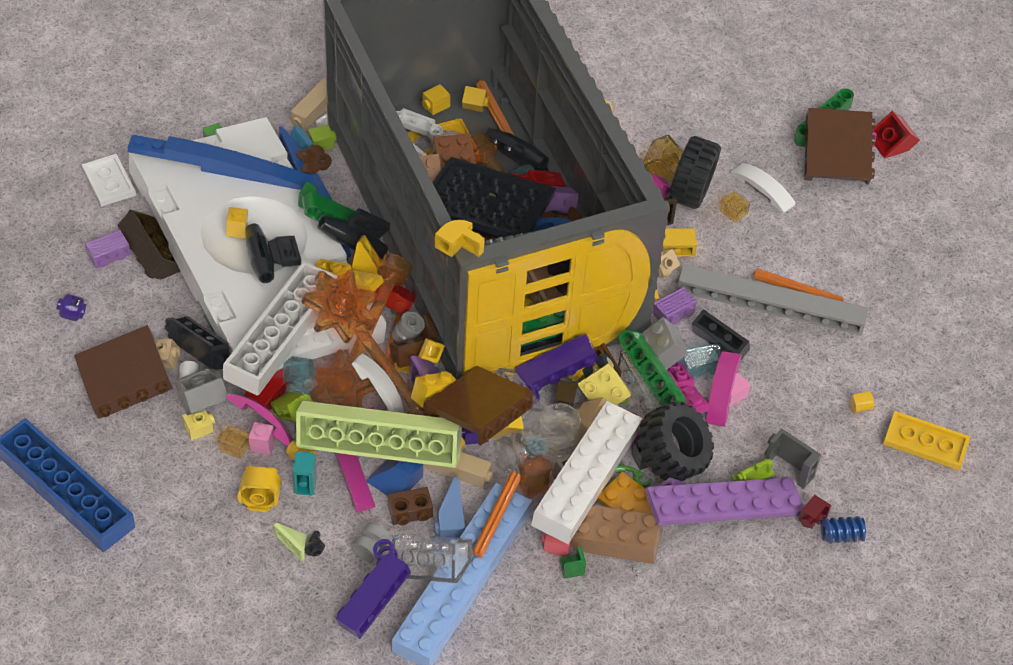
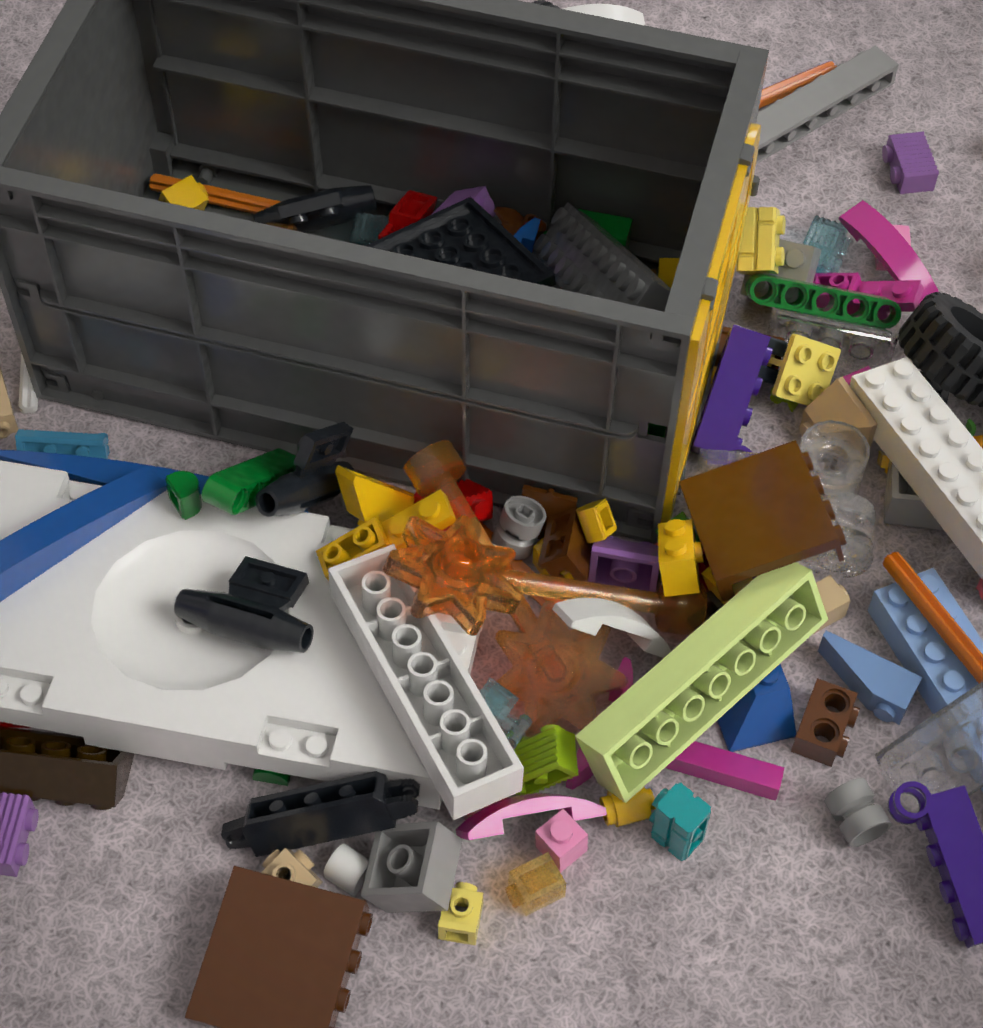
camera: 50 degrees left, 5 degrees up
(71, 307) = (74, 961): dark purple head -> none
(237, 222) = (151, 614): yellow brick -> none
(259, 488) = (660, 901): yellow brick -> none
(292, 539) = (779, 915): yellowish green slope -> none
(312, 159) = (99, 448): reddish brown plate -> none
(315, 545) = (810, 893): black plate -> none
(323, 137) = (63, 414): lime brick -> none
(458, 235) = (644, 301): yellow brick -> none
(535, 476) = (892, 533): clear orange brick -> none
(536, 446) = (866, 500): clear light blue tile -> none
(565, 392) = (773, 424): dark brown brick -> none
(653, 318) = (760, 242): none -> light yellow brick
(718, 333) = (804, 202): black brick -> none
(803, 368) = (910, 162): none -> medium lavender brick

